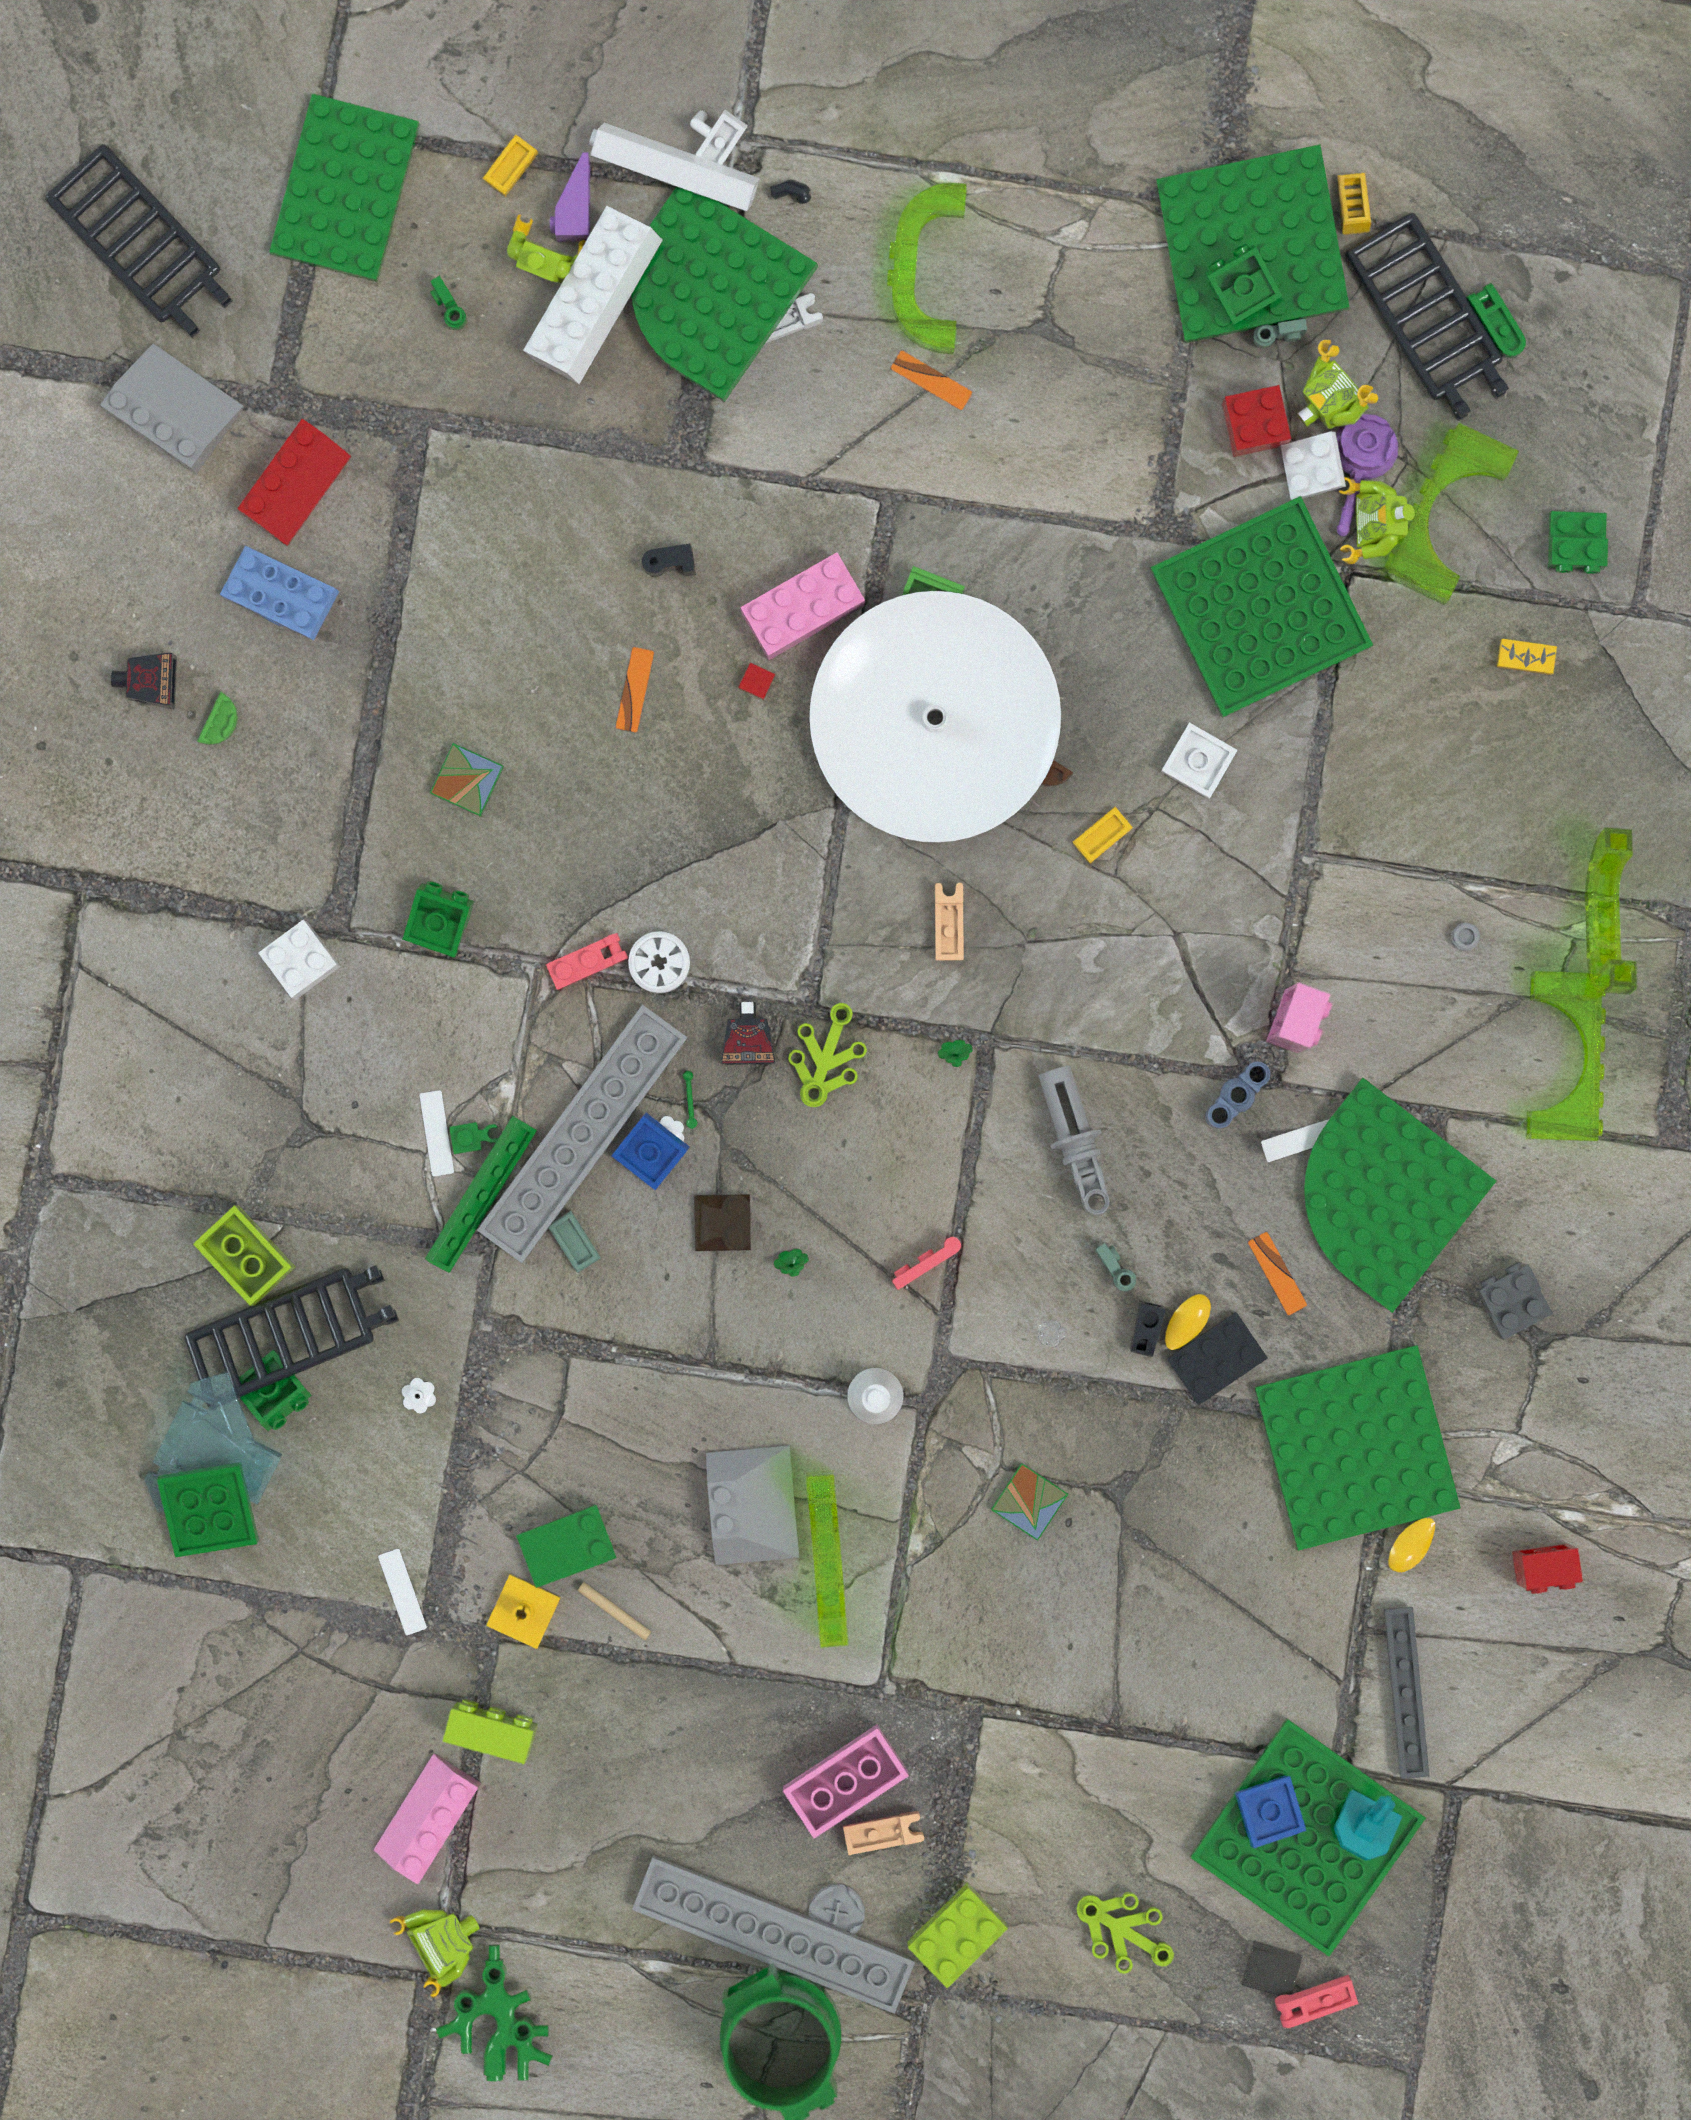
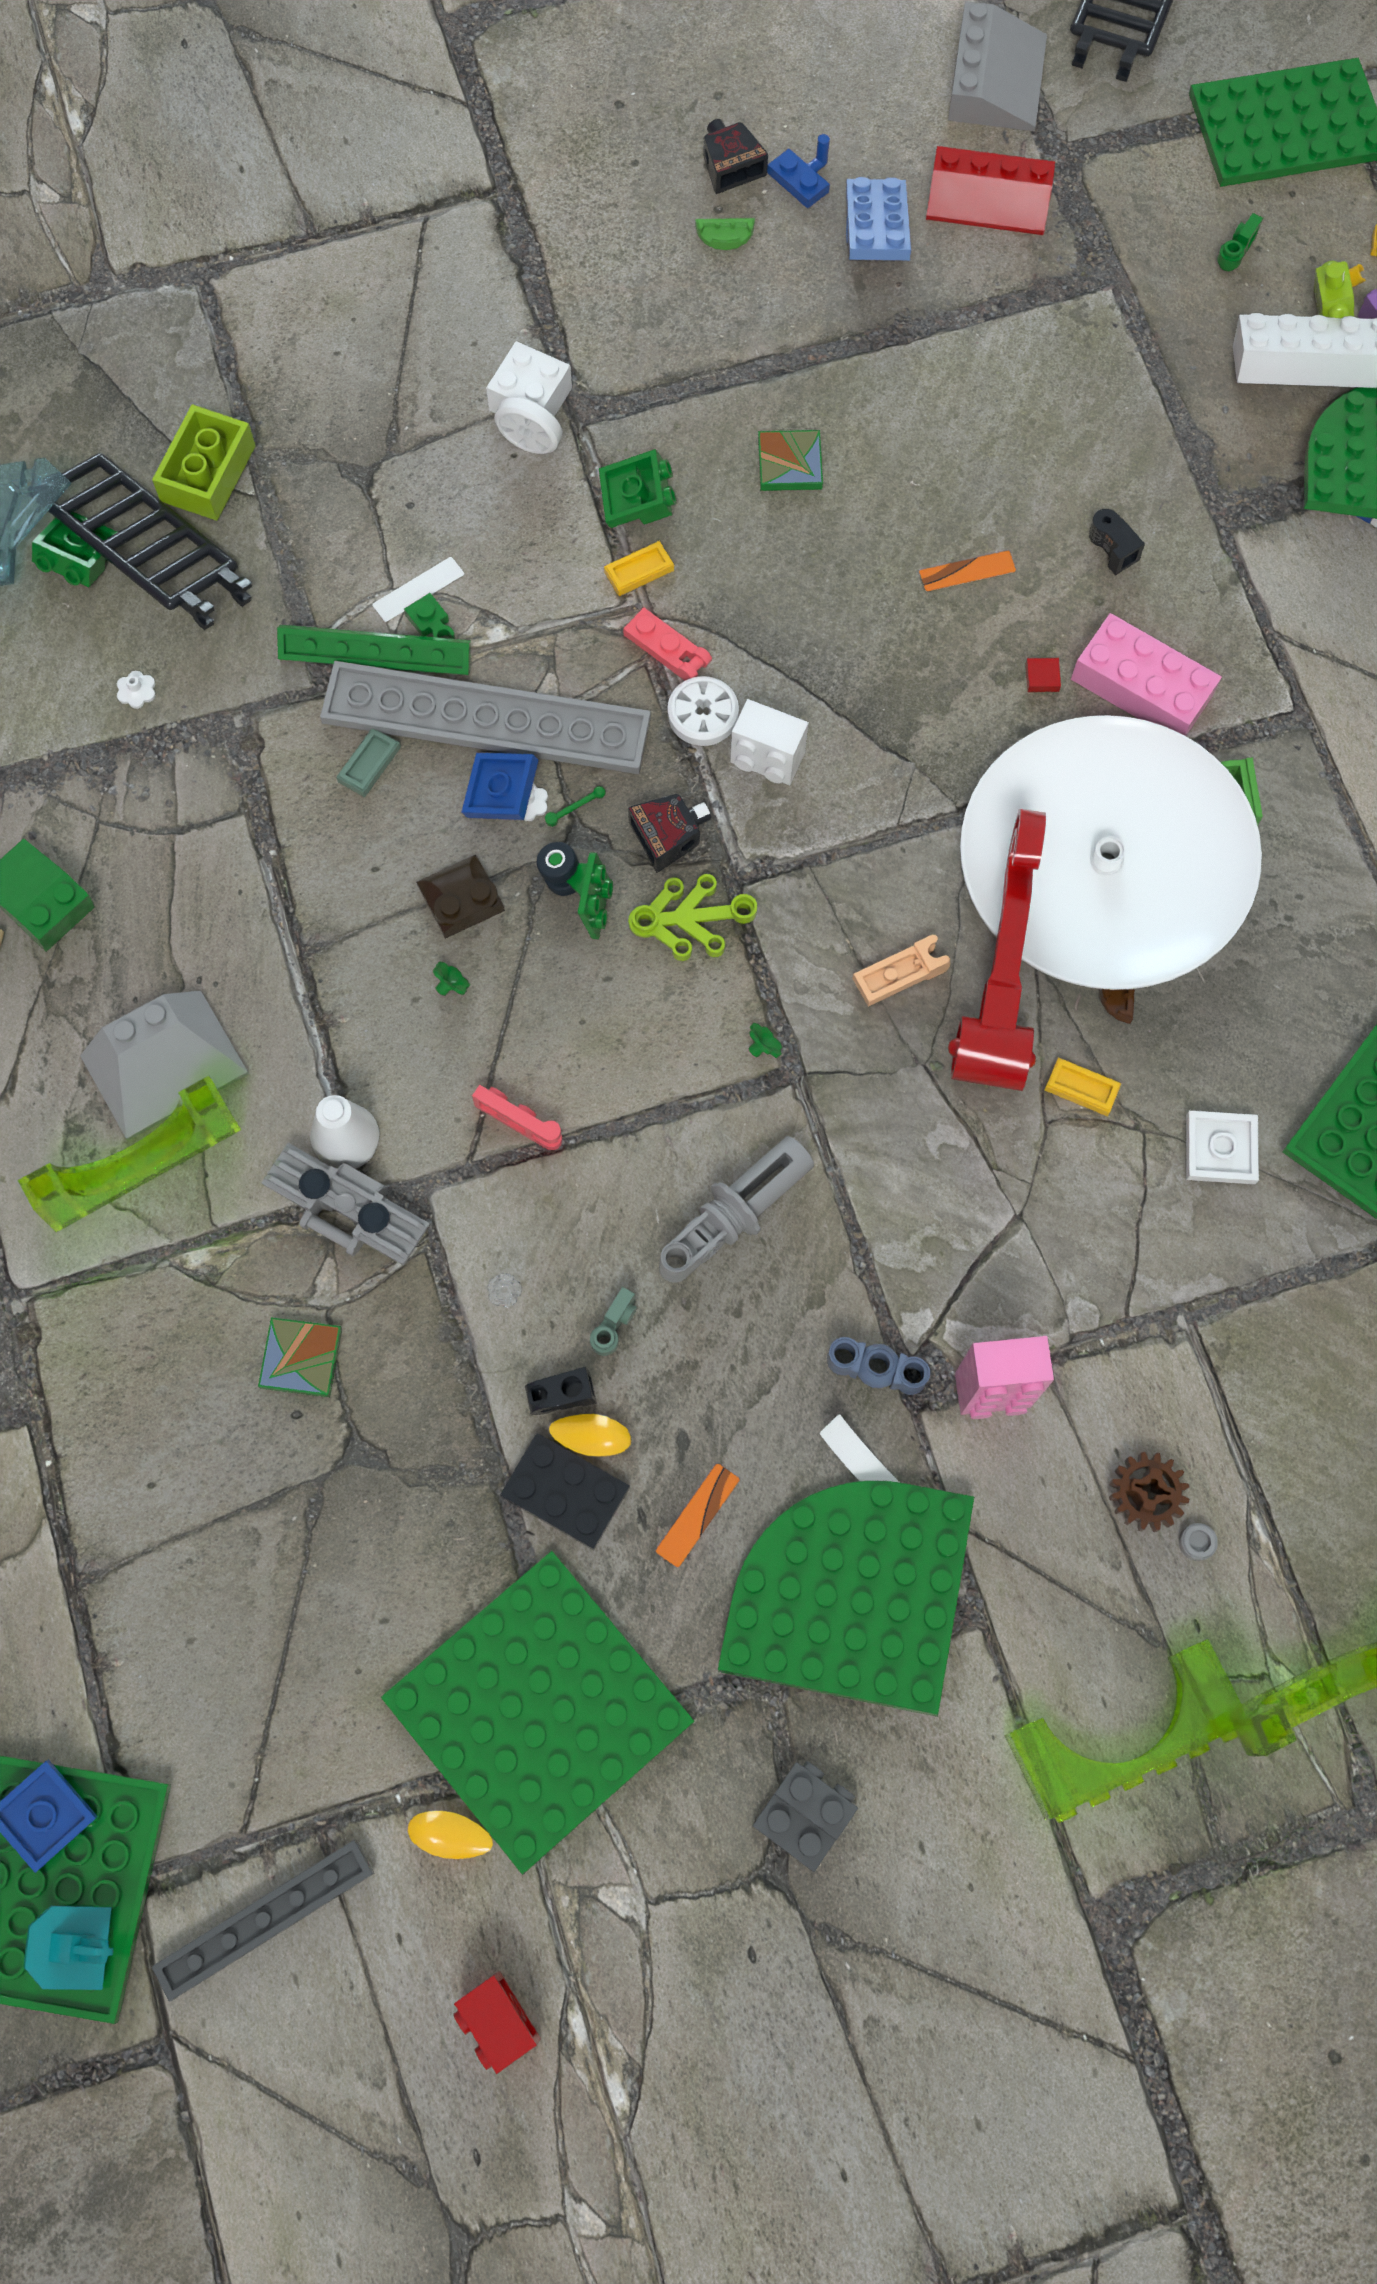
camera: 65 degrees right, 15 degrees down
(195, 631) = (802, 178): none -> blue plate
(341, 979) = (528, 425): none -> white wheel
(506, 949) = (639, 568): none -> yellow tile
(720, 929) = (768, 742): none -> white brick
(768, 1120) = (589, 880): none -> green plate
(930, 1410) = (350, 1193): none -> light grey piece
(1046, 888) = (994, 1047): none -> red piece
(1407, 945) = (1164, 1495): none -> reddish brown gear

